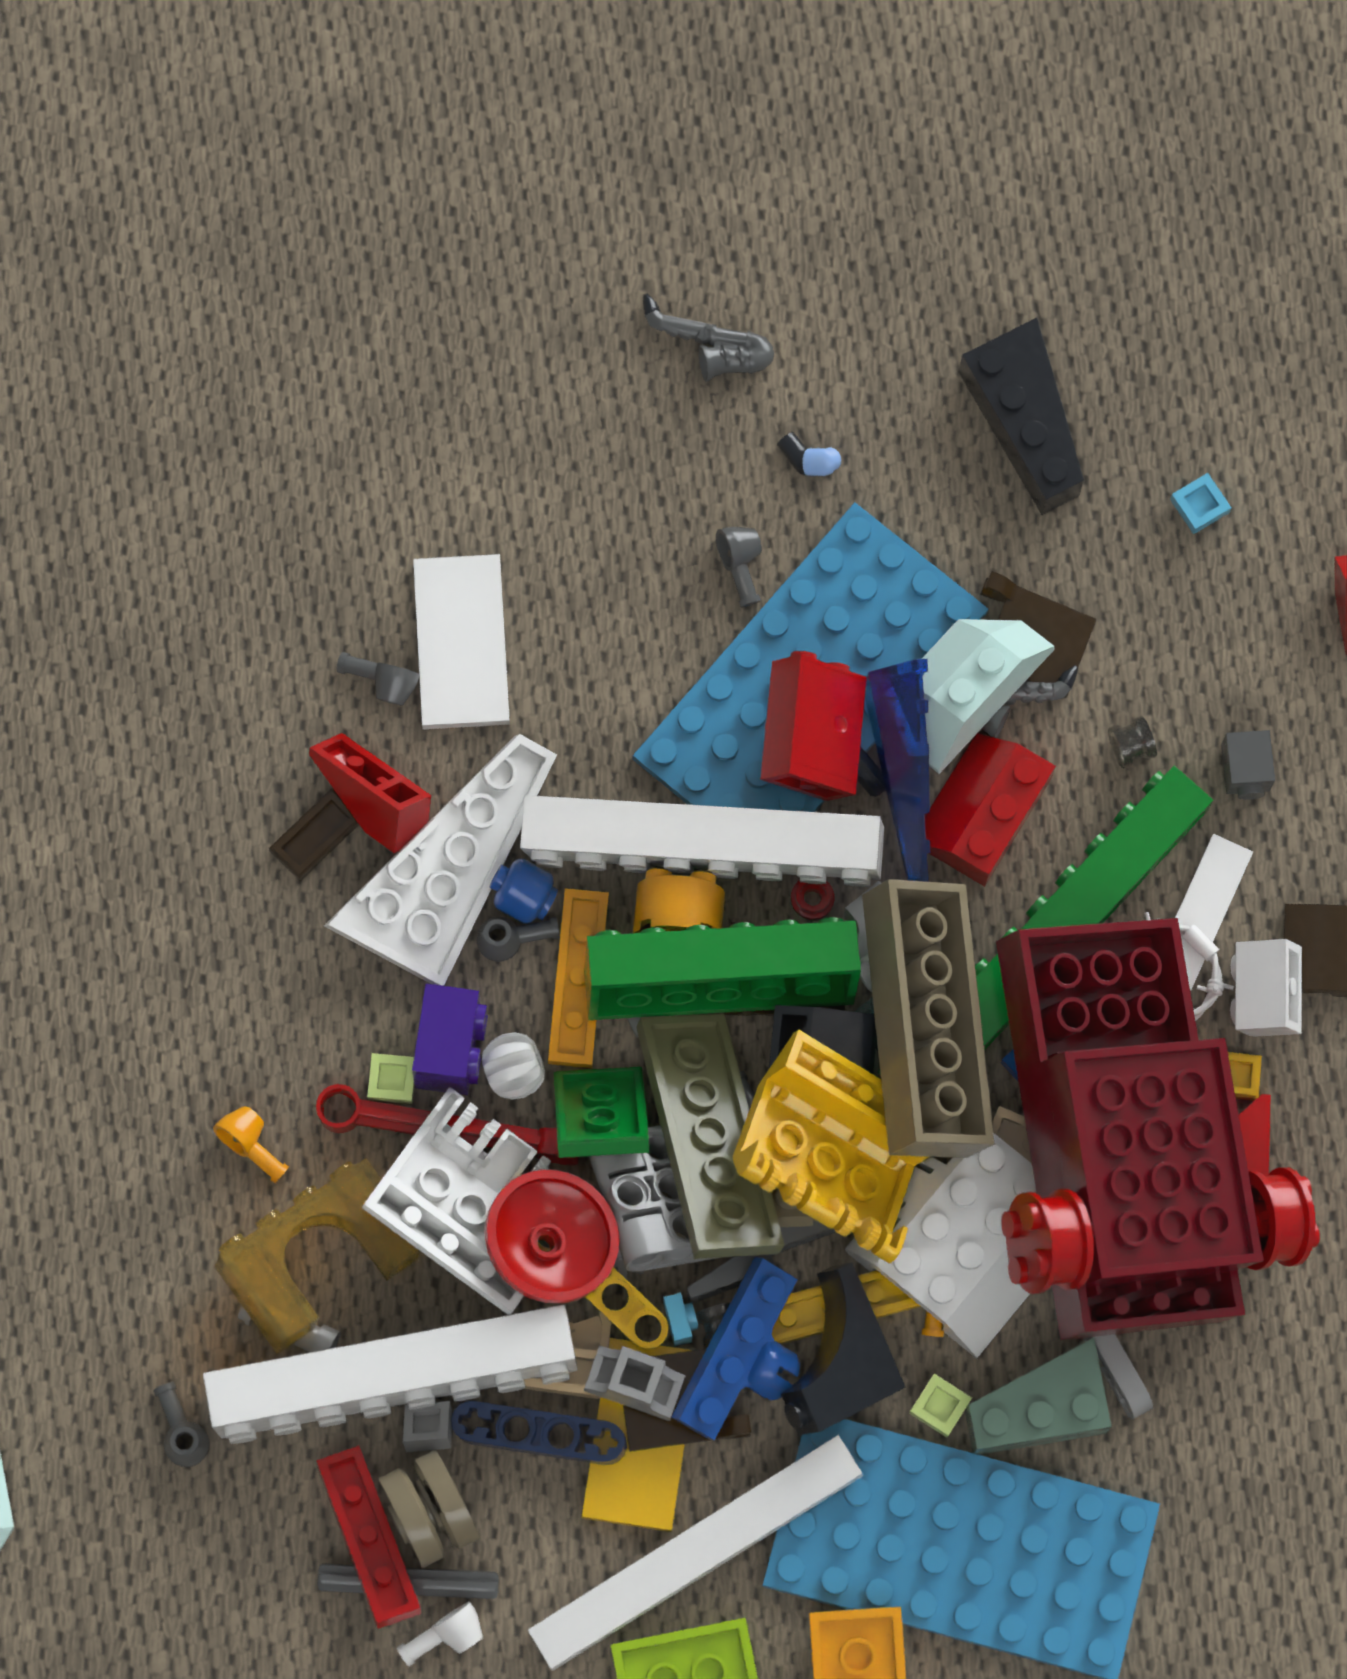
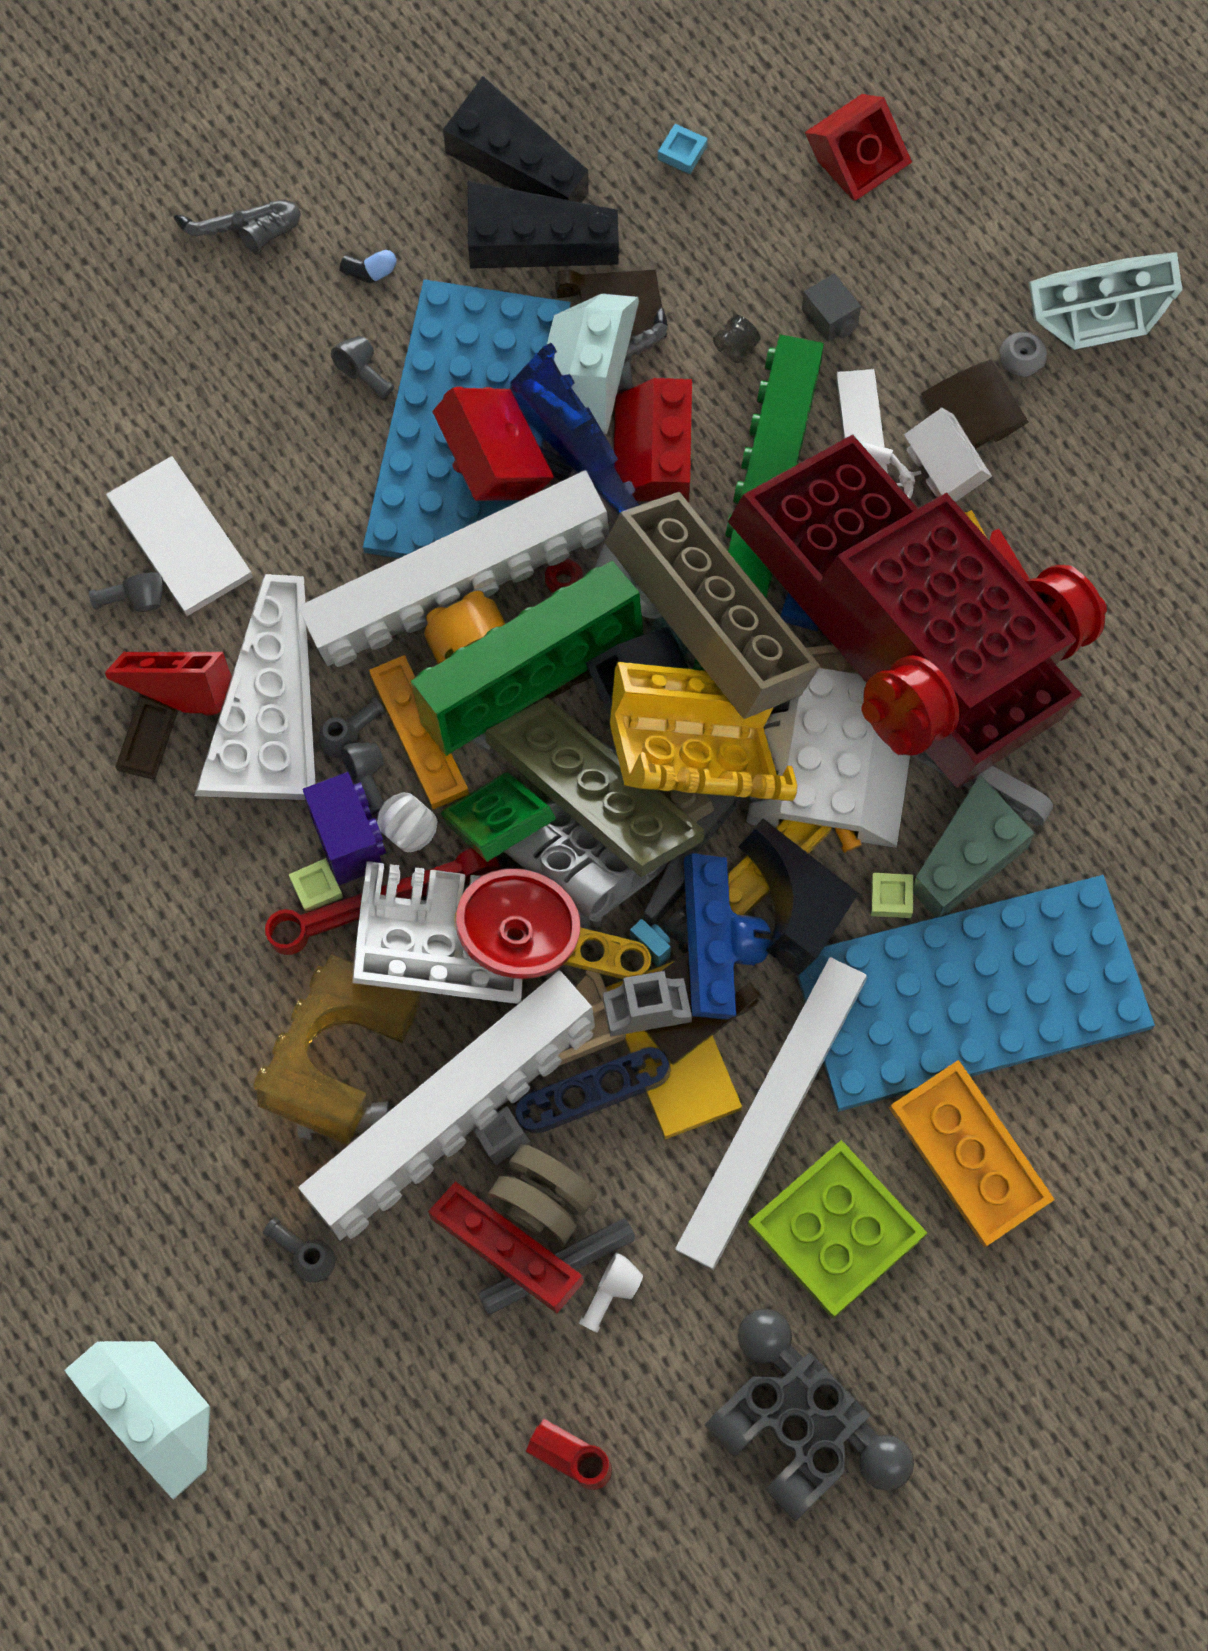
camera: 25 degrees left, 5 degrees down
(246, 1128) = (221, 985): light orange bar -> none
(506, 978) = (367, 760): none -> dark grey bar
(523, 890) = (337, 688): blue head -> none
(997, 513) = (537, 230): none -> black wedge

